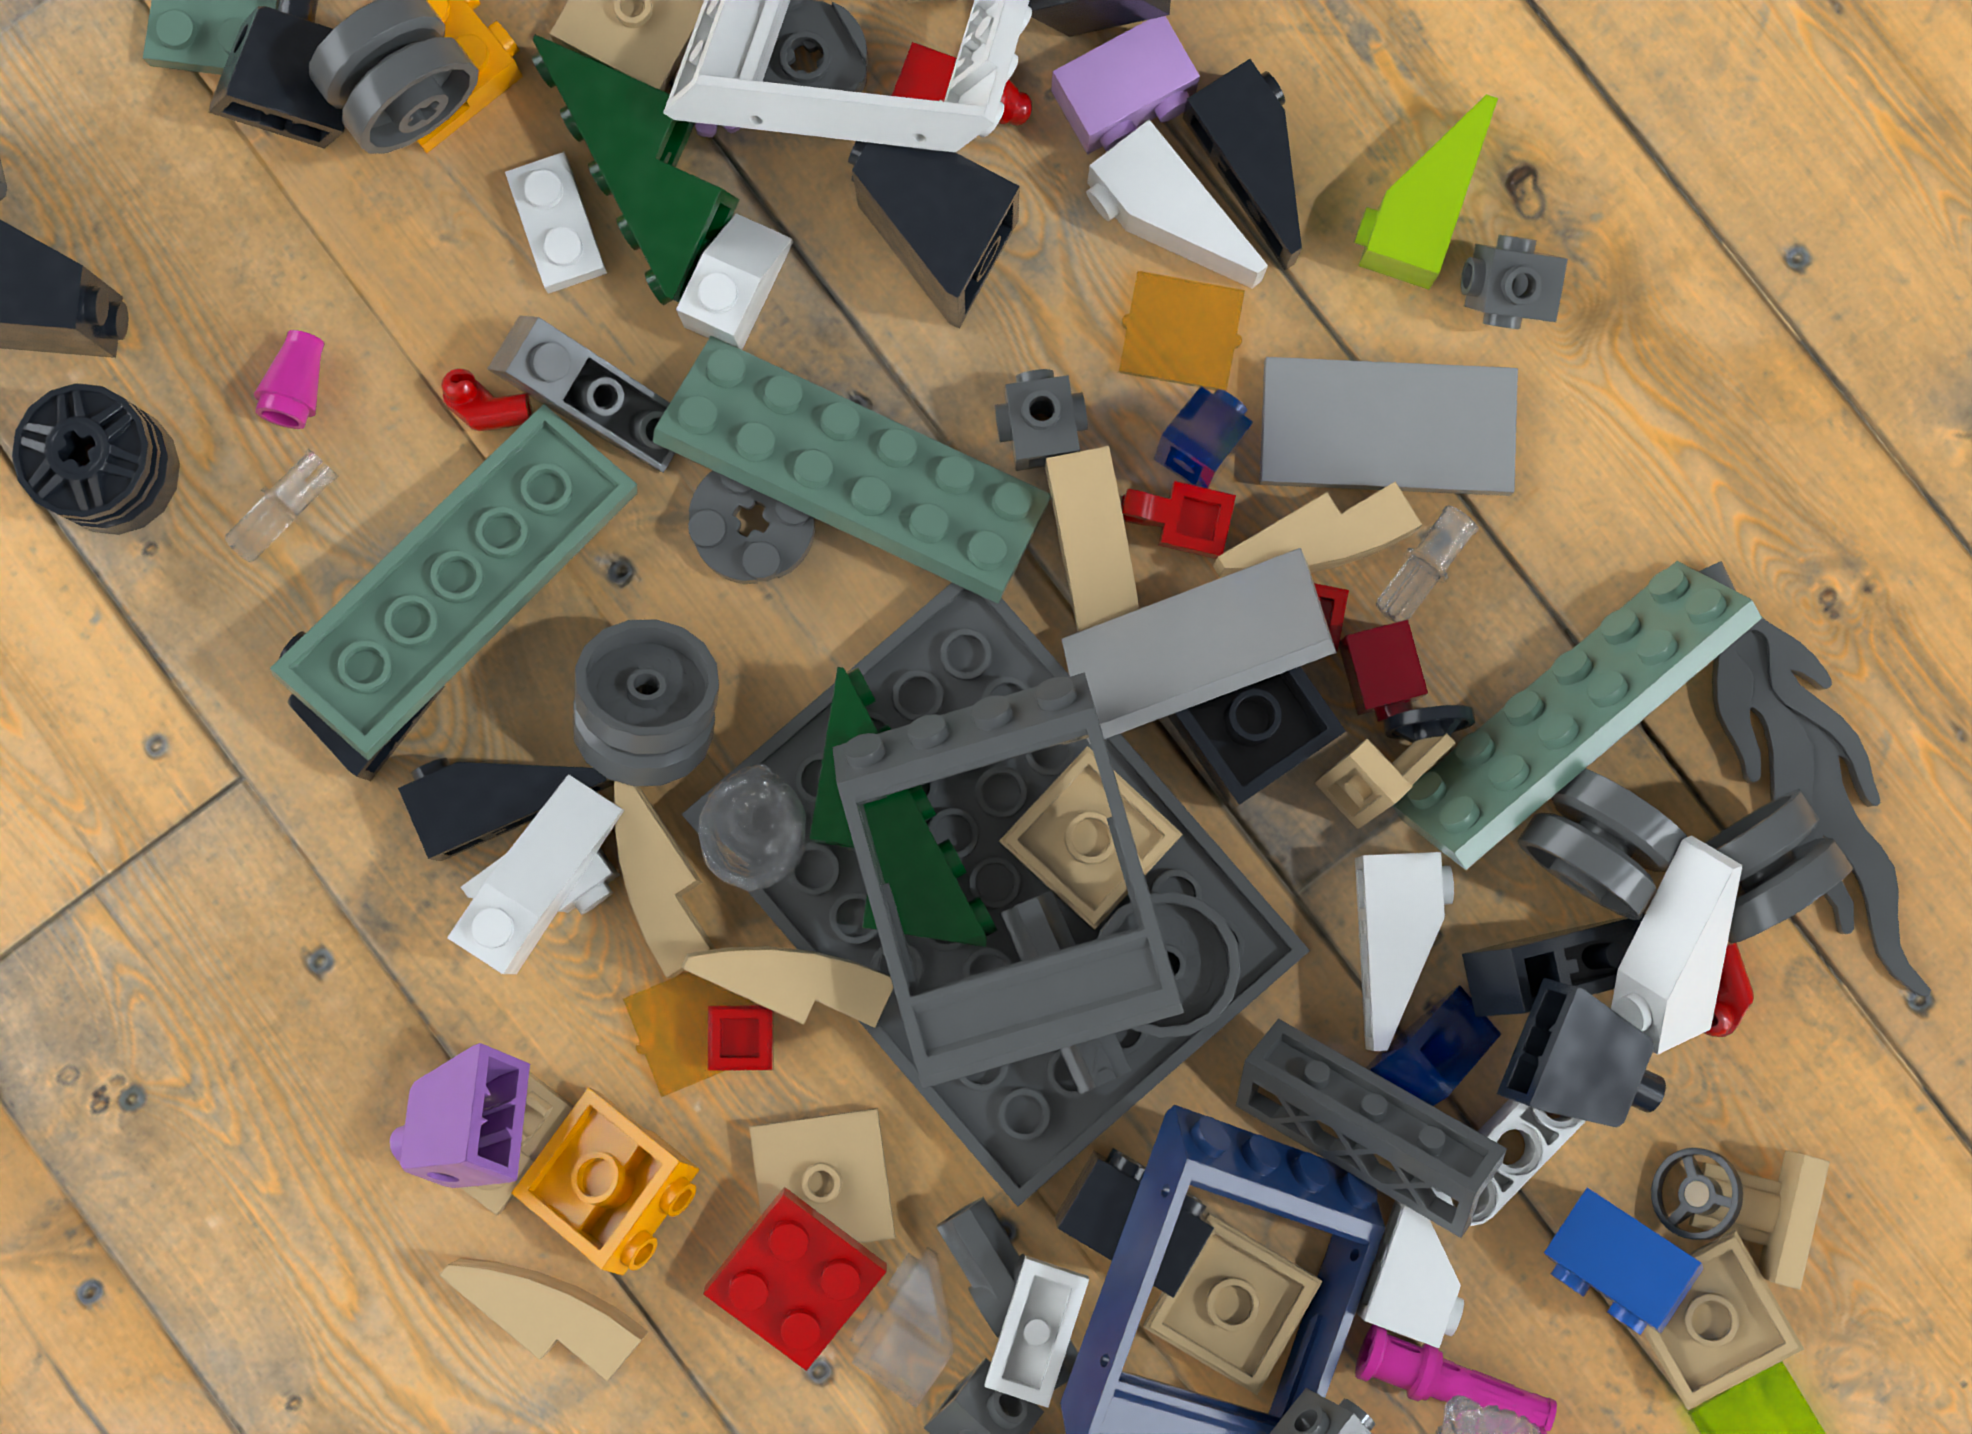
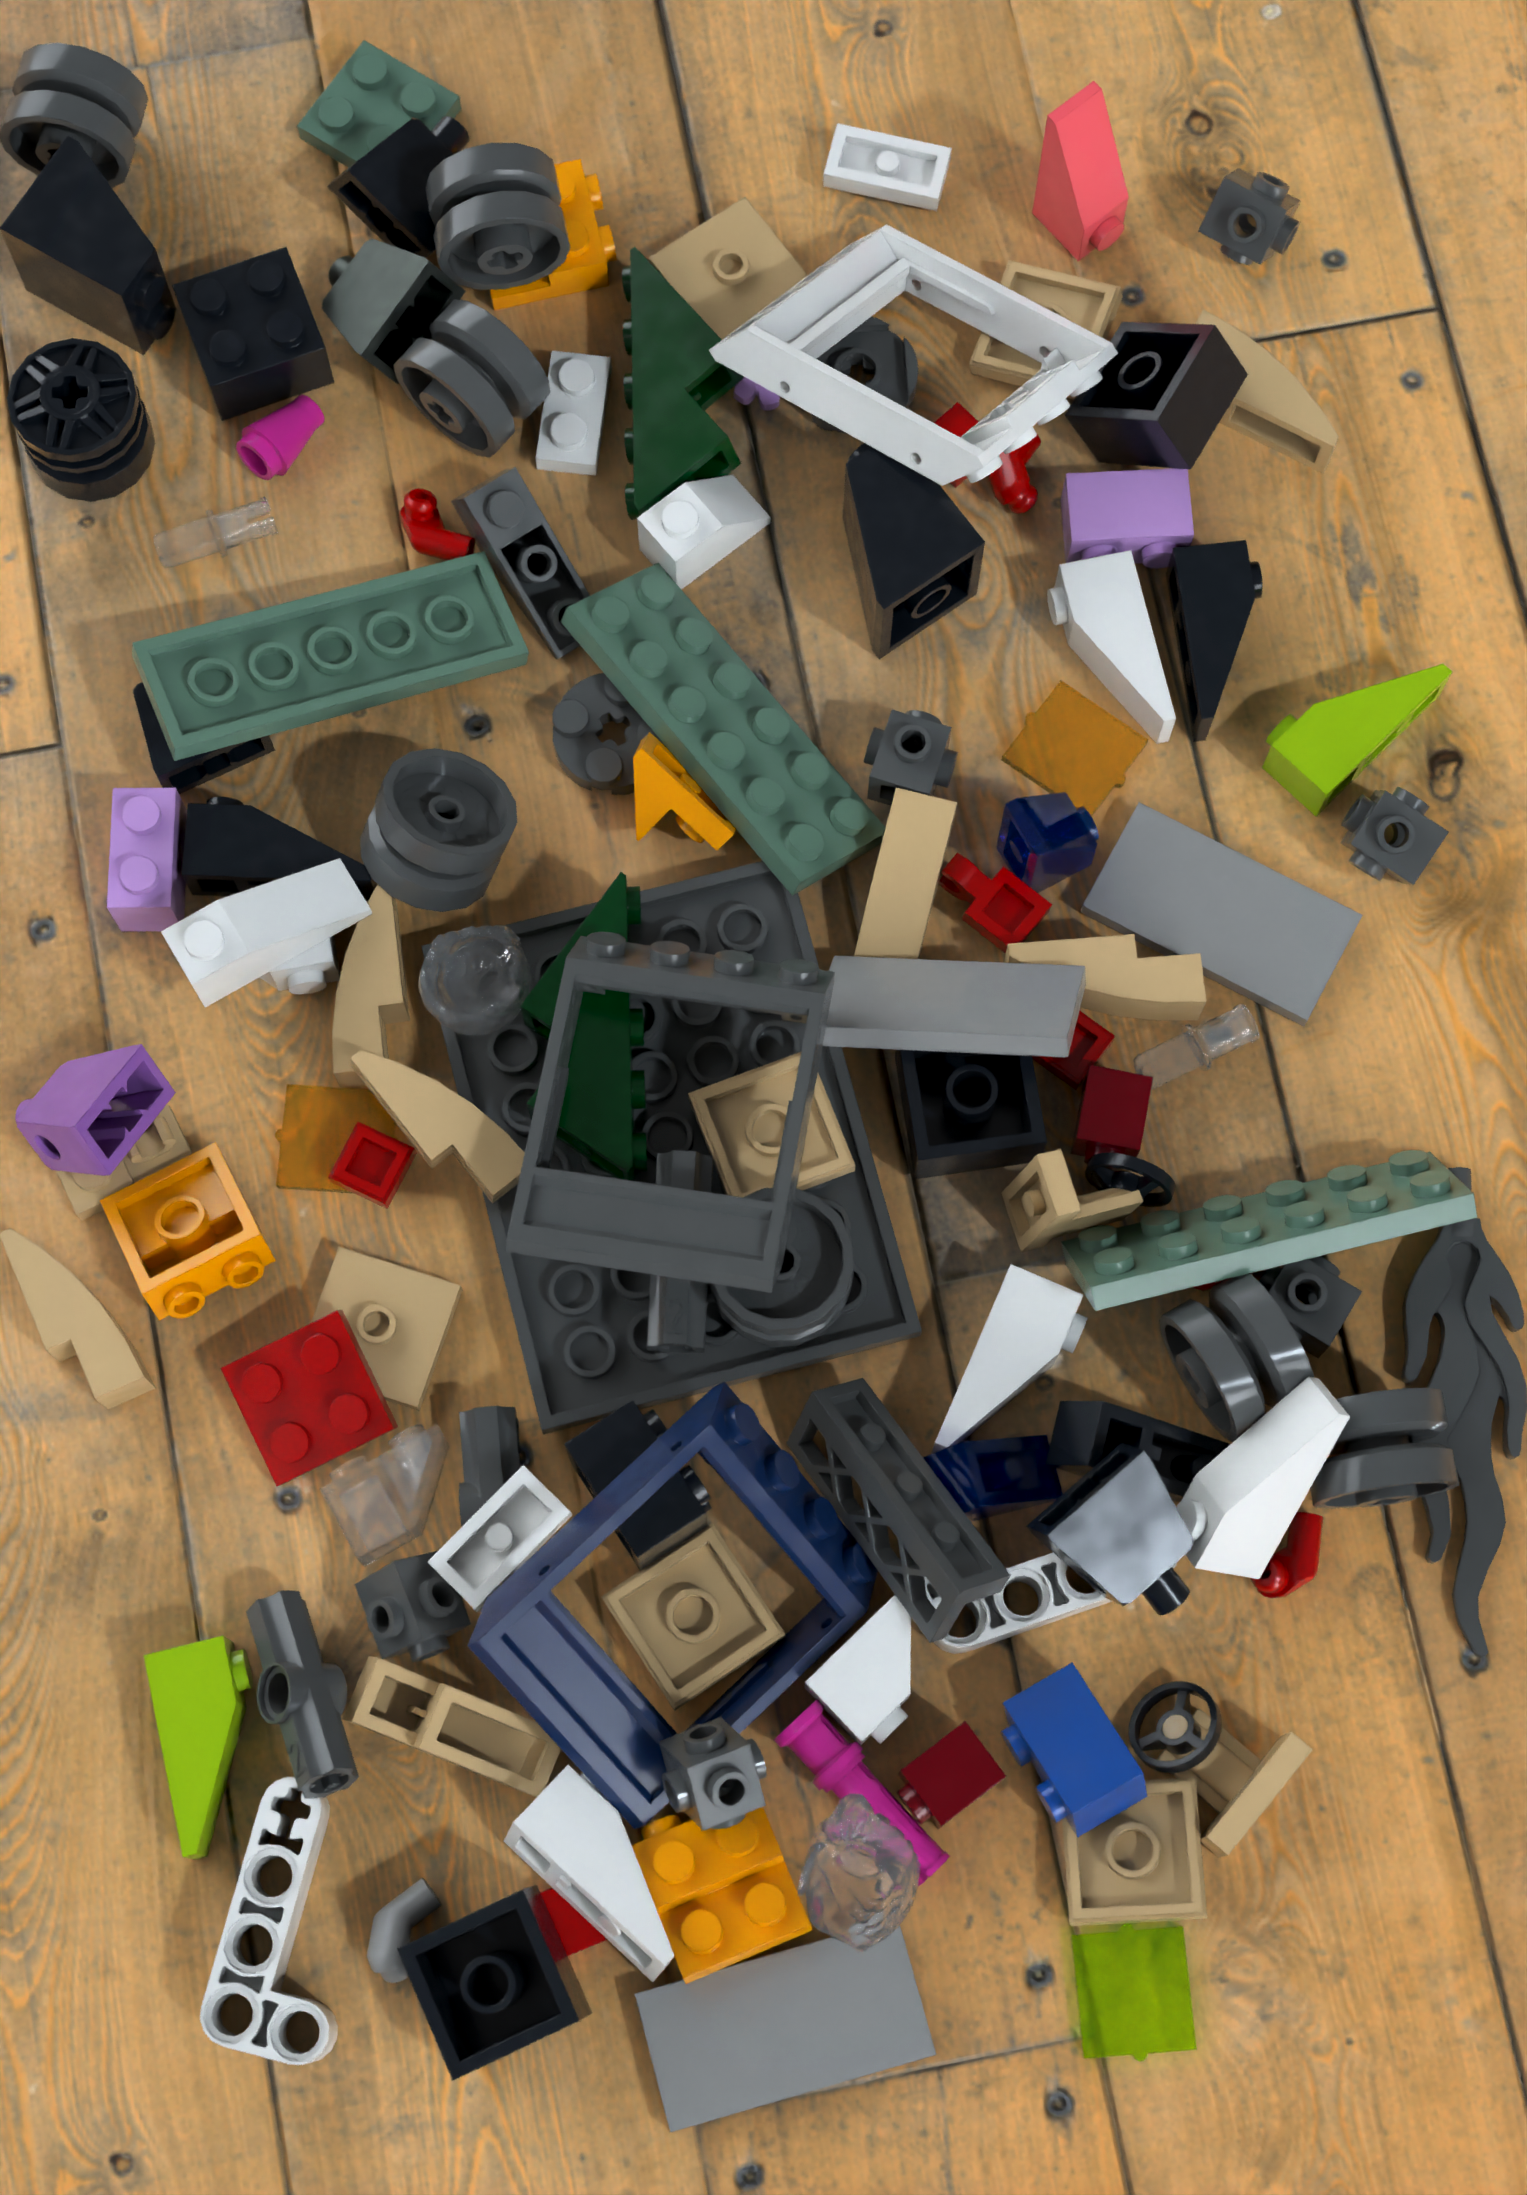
camera: 25 degrees right, 10 degrees down
(213, 292) = (254, 333): none -> black brick
(329, 207) = (386, 301): none -> pearl dark grey torso
(385, 855) = (146, 859): none -> lavender brick
(449, 242) = (472, 378): none -> dark grey wheel
(835, 556) = (666, 785): none -> light orange slope
(1524, 1336) = (948, 1777): none -> dark red brick
(1656, 757) = (1324, 1298): none -> dark grey brick

